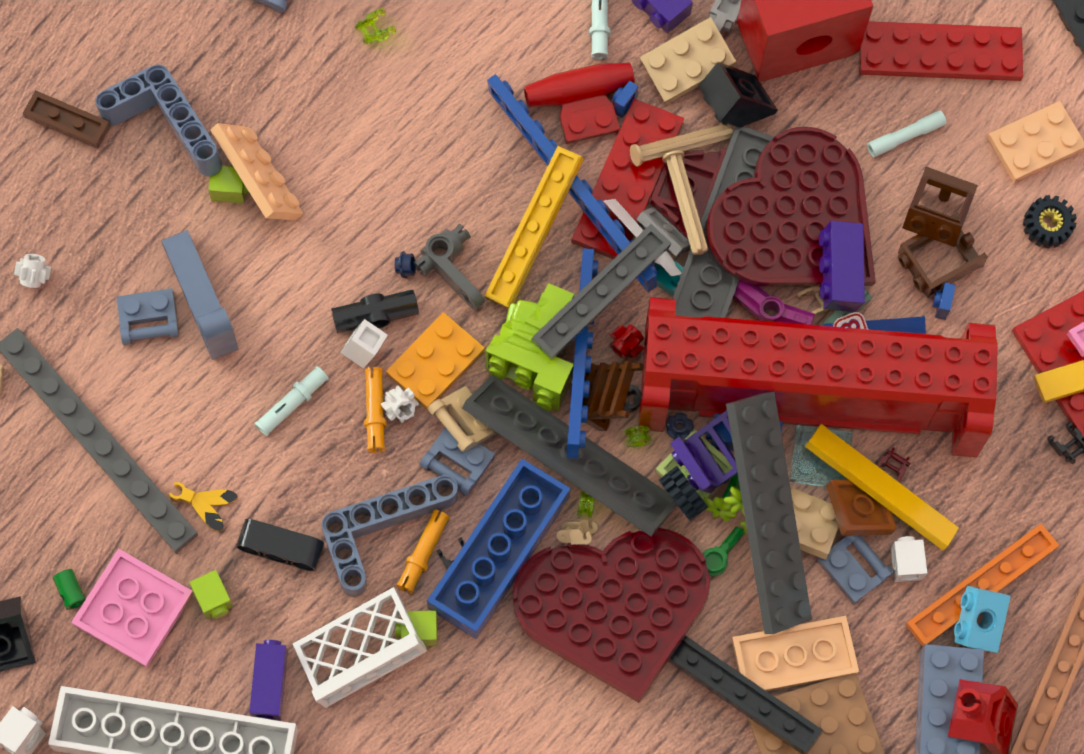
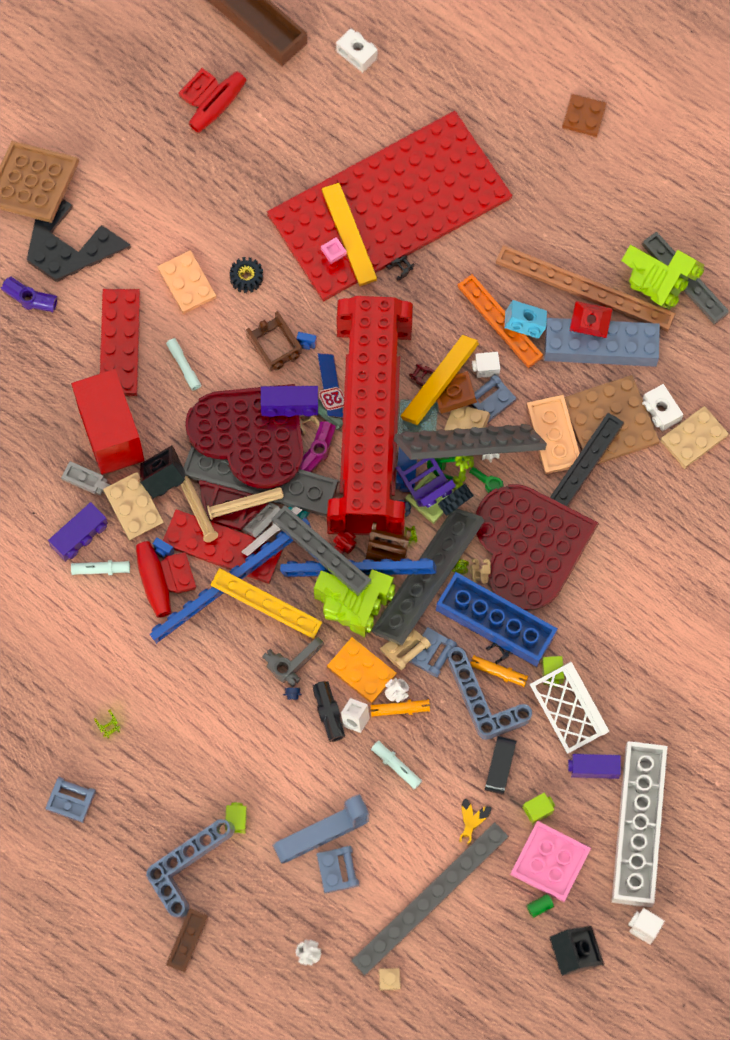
camera: 90 degrees left, 0 degrees up
(257, 172) = (229, 796): light nougat plate -> none
(934, 223) = (256, 347): reddish brown window -> none

